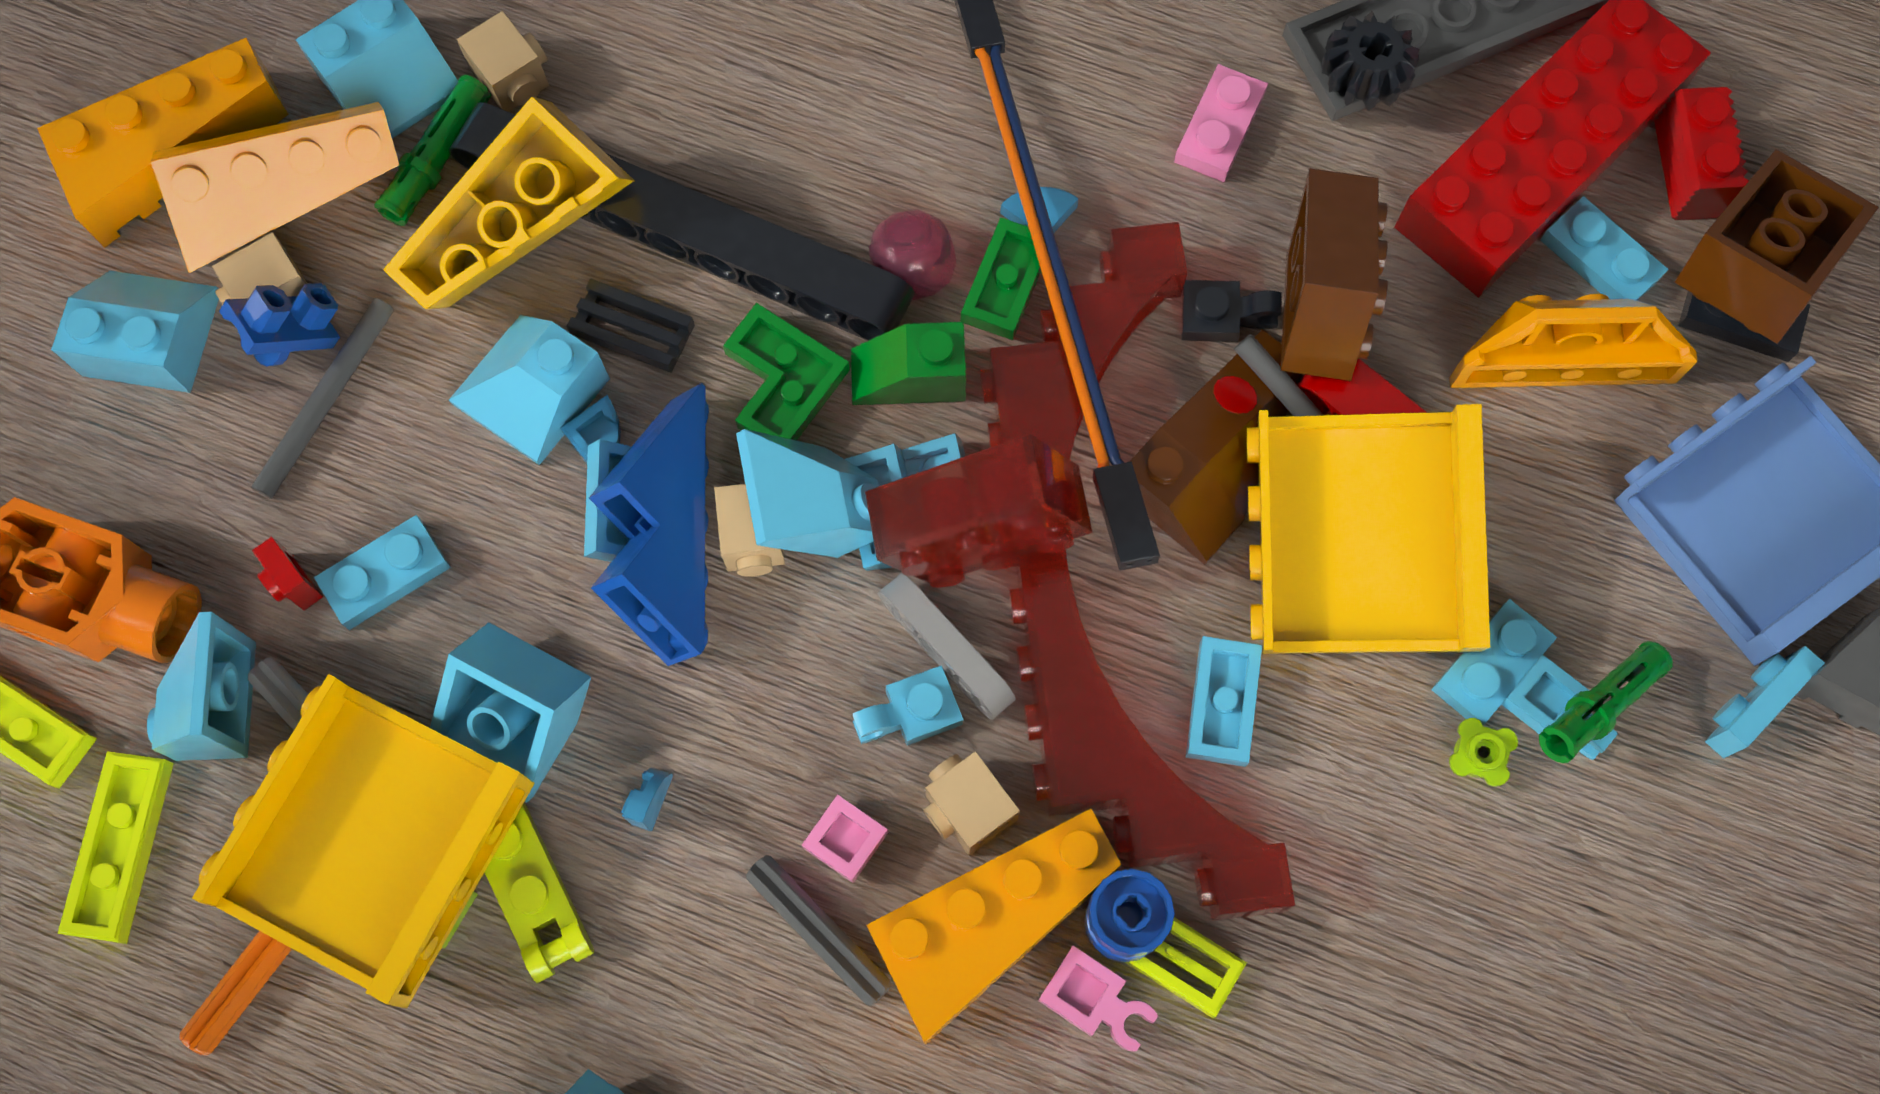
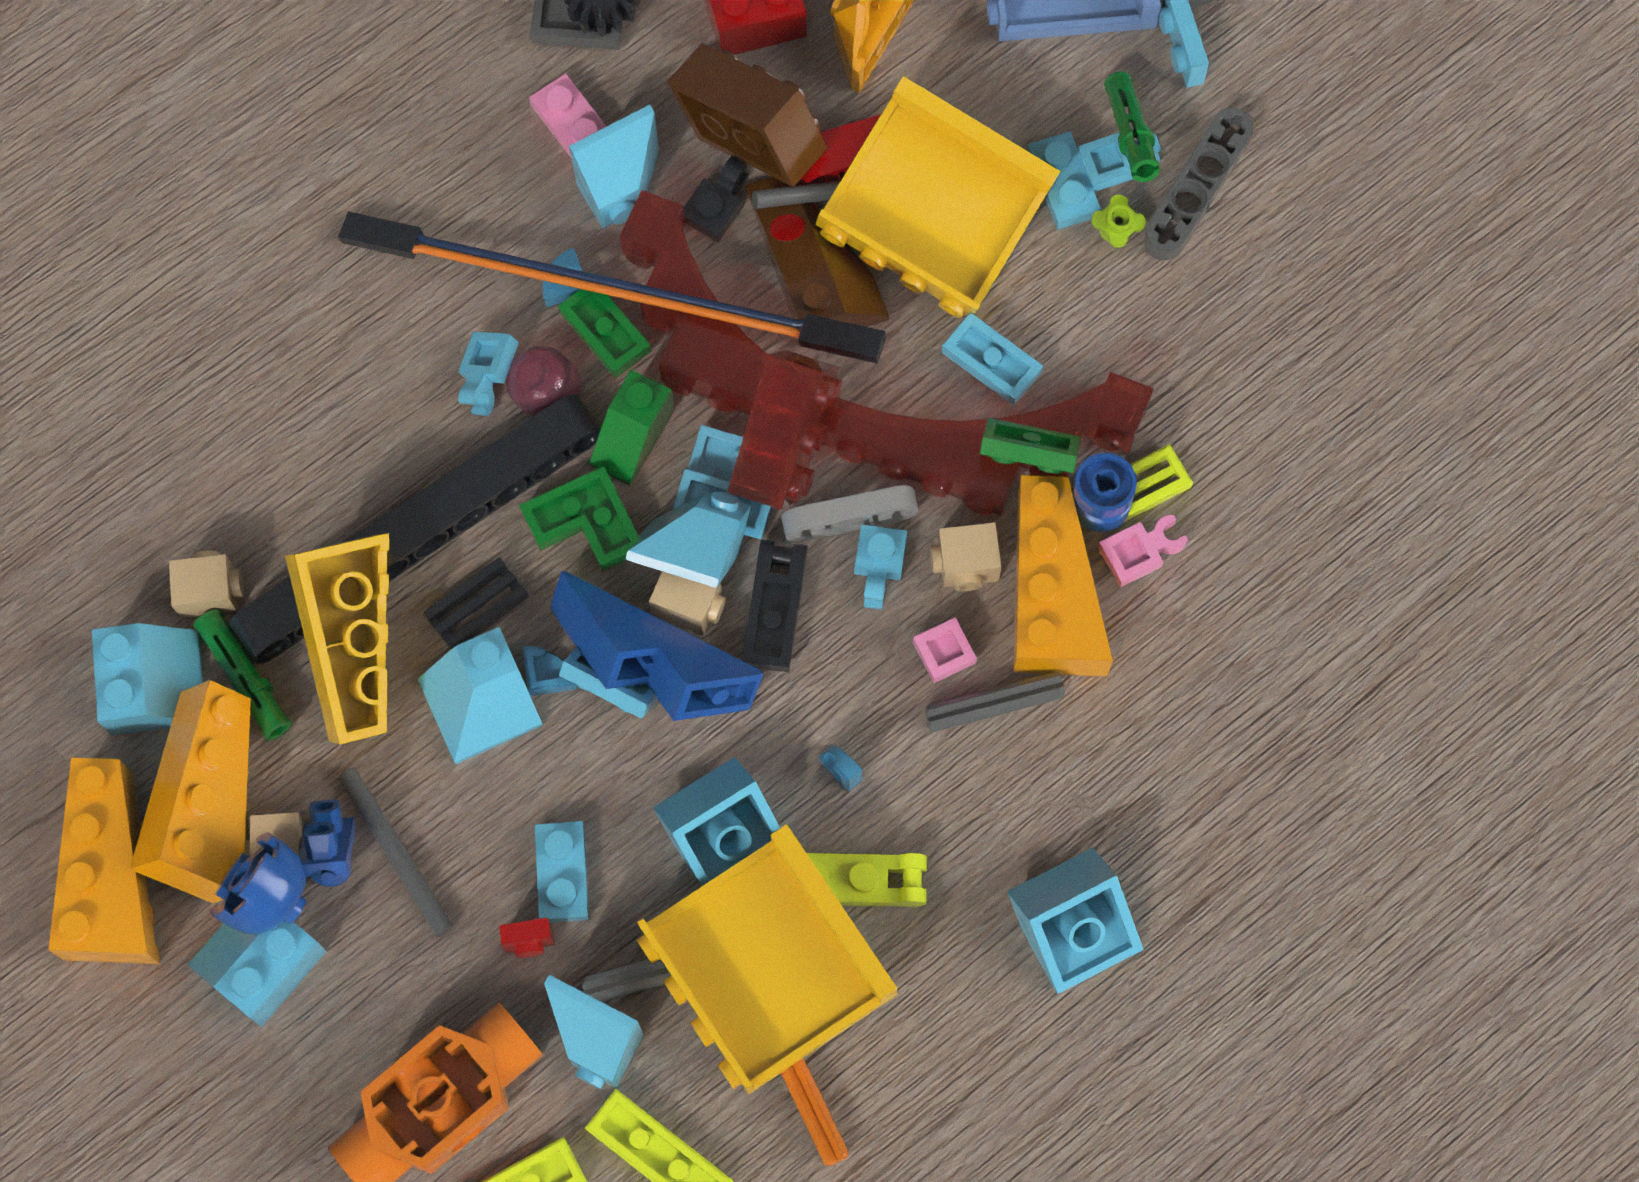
camera: 60 degrees left, 0 degrees up
(175, 280) = (262, 888): none -> blue cylinder
(794, 625) = (774, 607): none -> black plate
(893, 186) = (485, 363): none -> medium azure plate
(1129, 798) = (1030, 445): none -> green plate
(1194, 182) = (616, 165): none -> medium azure slope
(1593, 825) = (1202, 185): none -> dark grey beam

